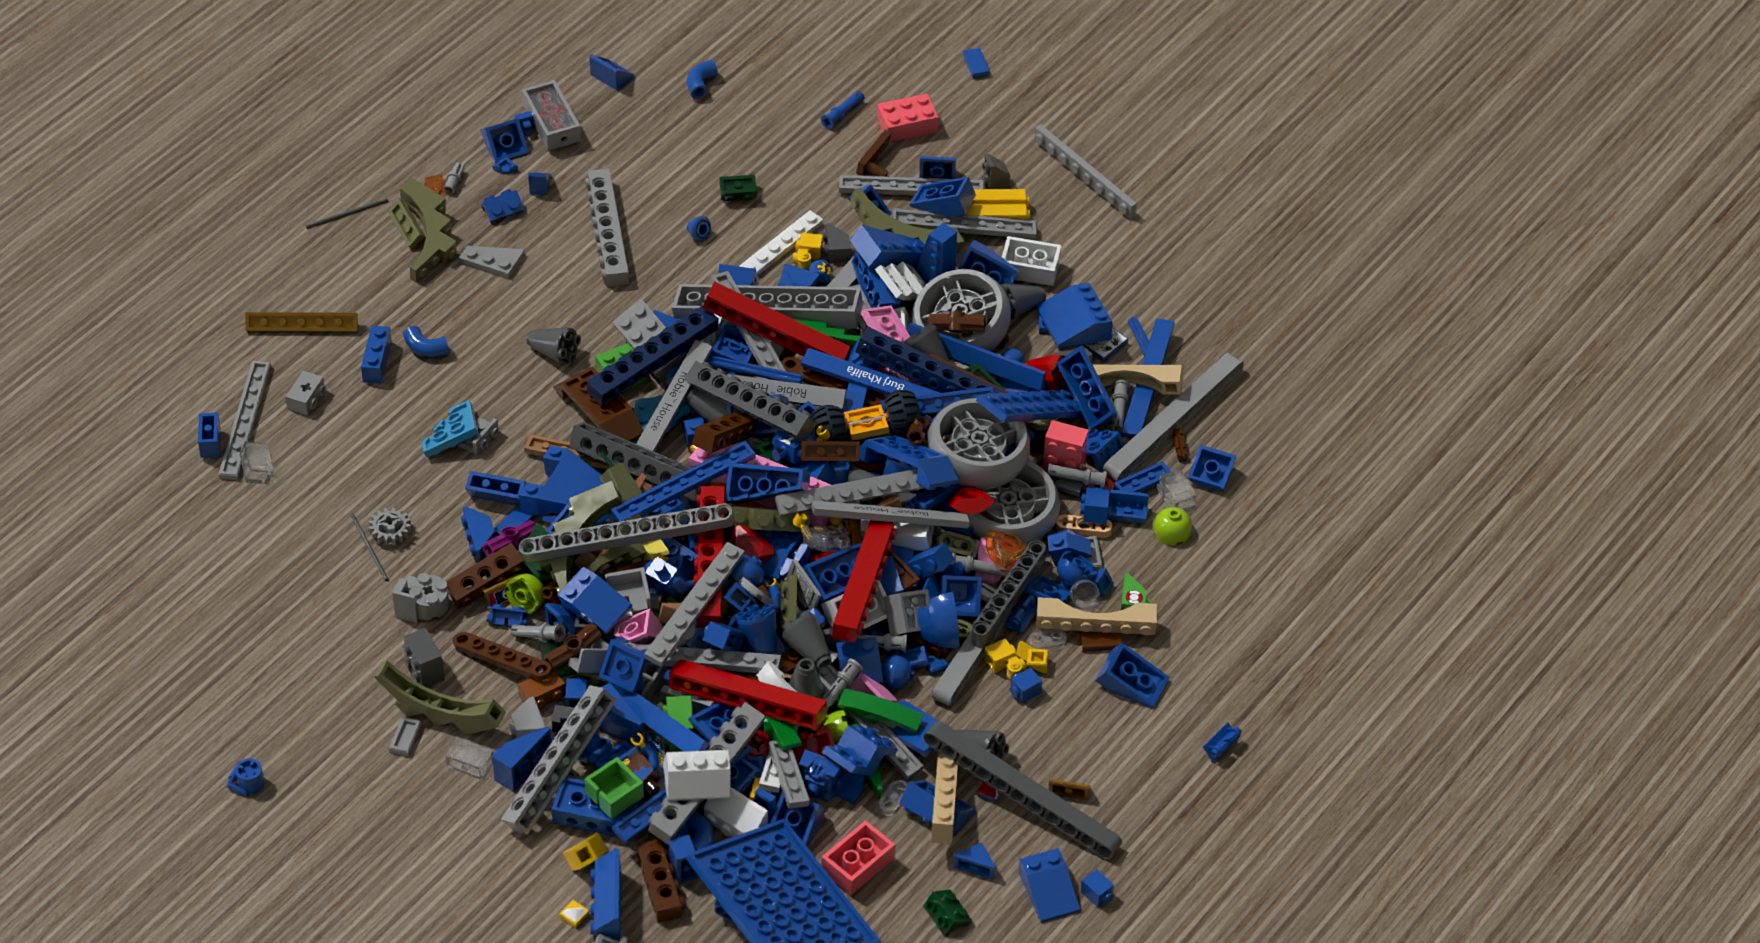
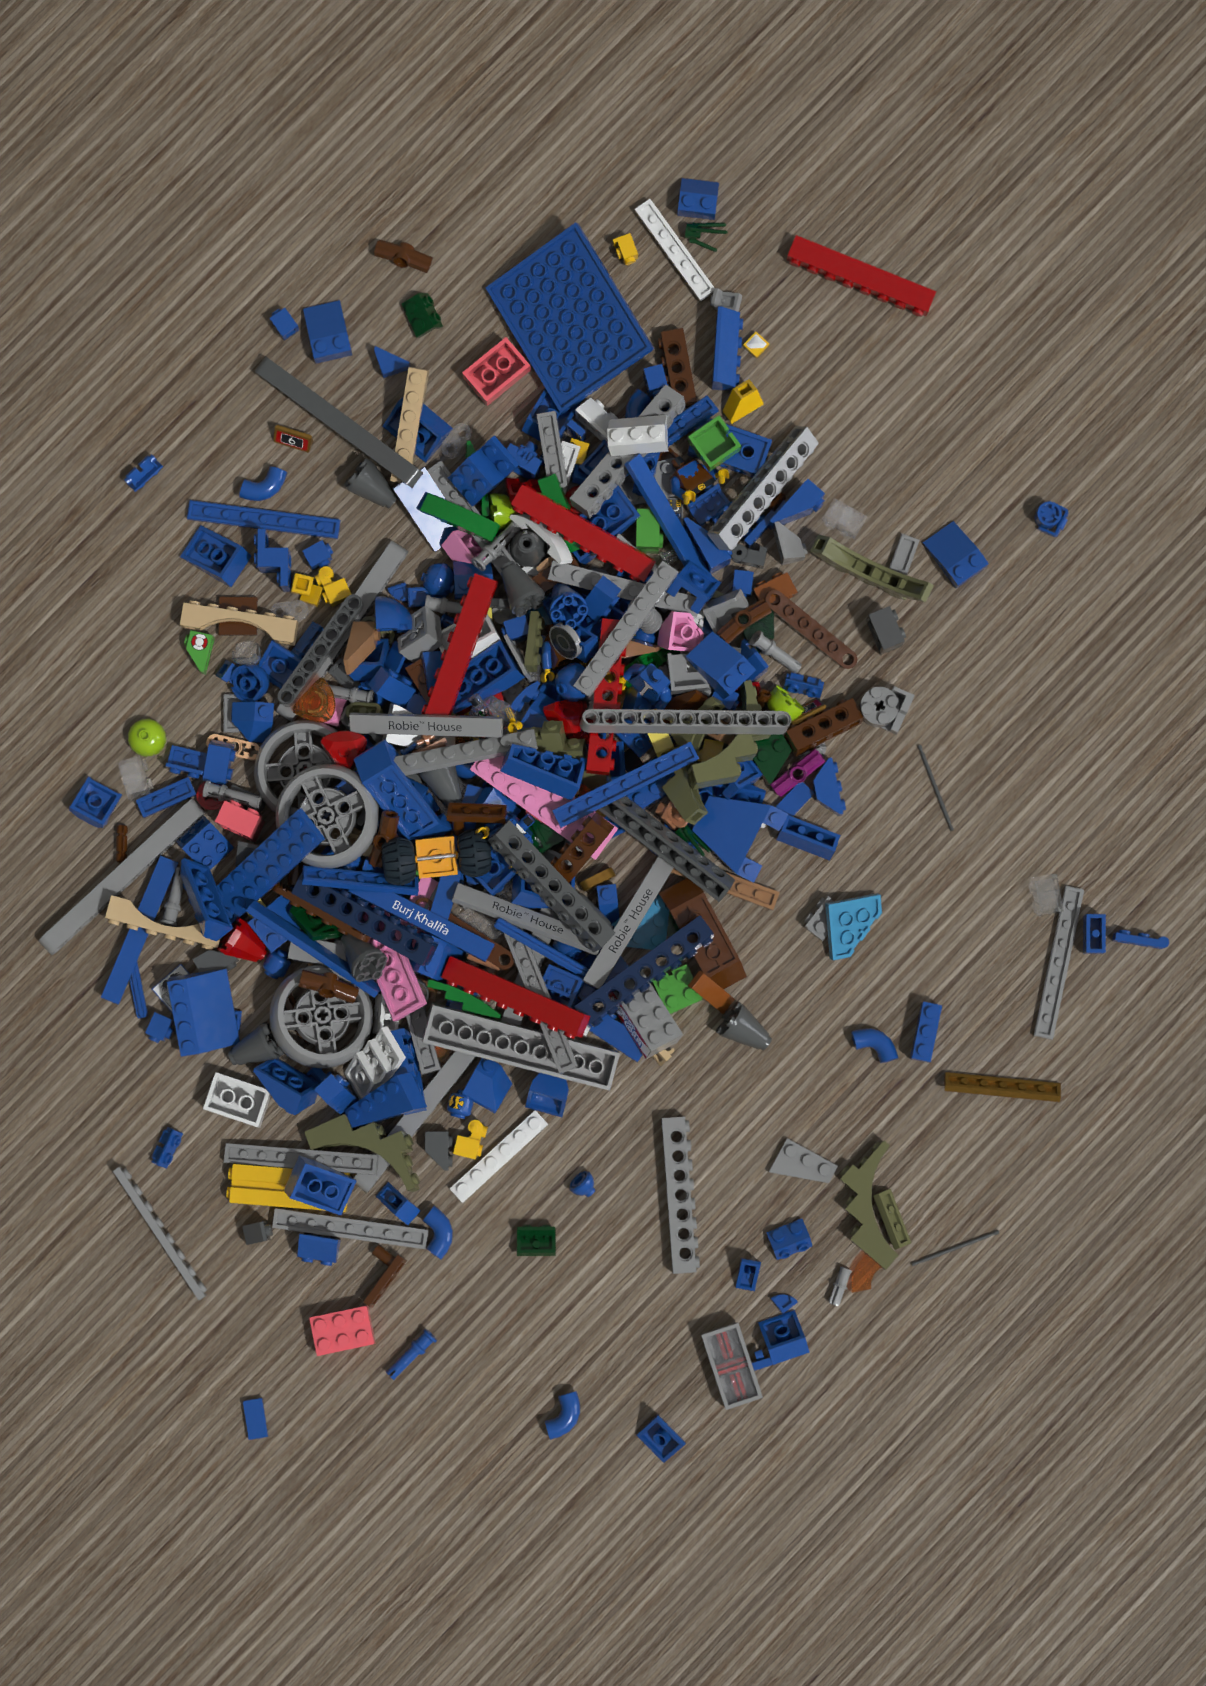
camera: 175 degrees left, 35 degrees up
(162, 437) = (1140, 940): none -> blue plate
(305, 393) = (997, 998): light grey brick -> none
(348, 735) = (955, 554): none -> blue slope
(389, 526) = (914, 796): light grey gear -> none
(587, 361) = (711, 992): none -> dark orange tile
(826, 189) = (442, 1232): none -> blue cylinder
(969, 594) = (360, 644): none -> medium nougat slope
(1070, 670) = (273, 560): none -> blue bracket
(1088, 716) = (263, 519): none -> blue tile
(1089, 233) = (171, 1140): none -> blue hinge
(1089, 738) = (265, 489): none -> blue cylinder
(1116, 309) = (159, 1028): none -> blue brick

